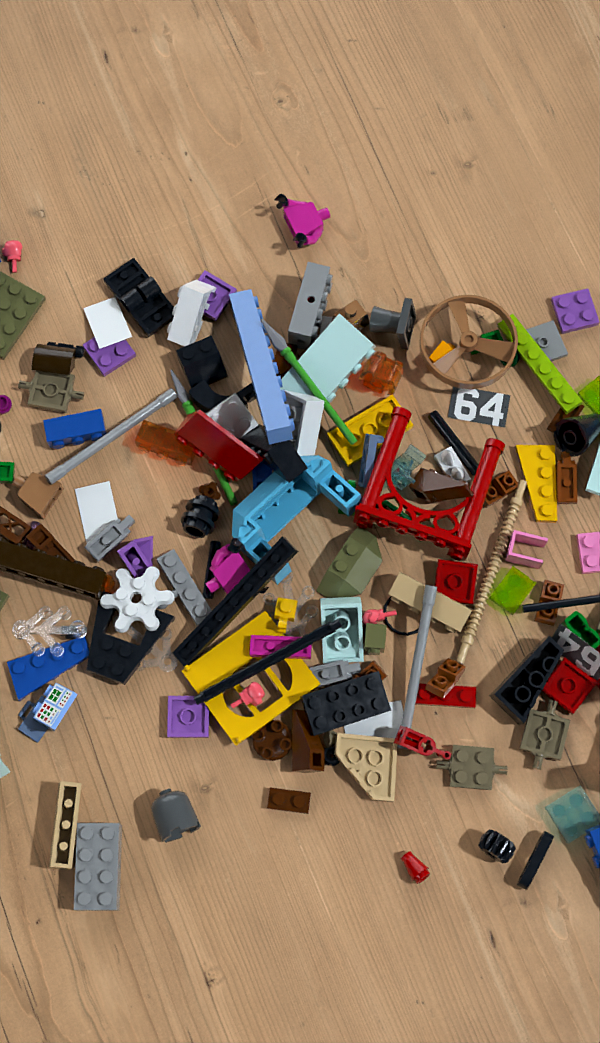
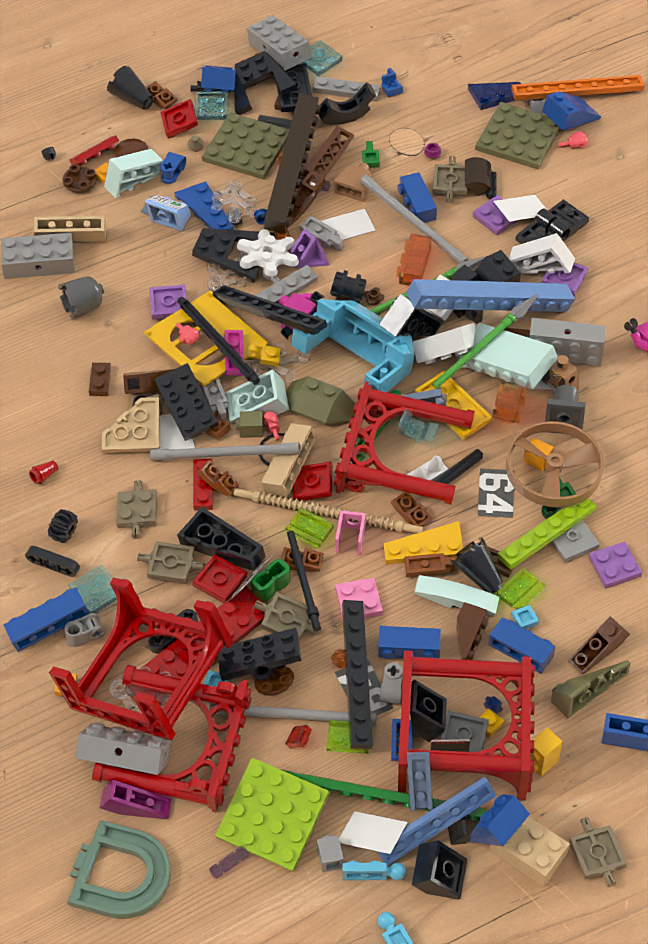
camera: 85 degrees right, 20 degrees down
(72, 601) = (260, 216): none -> blue plate
(217, 446) = (420, 266): red slope -> none
(273, 740) = (151, 359): reddish brown dish -> none
(417, 740) = (153, 459): red piece -> none
(437, 487) = (403, 452): reddish brown slope -> none

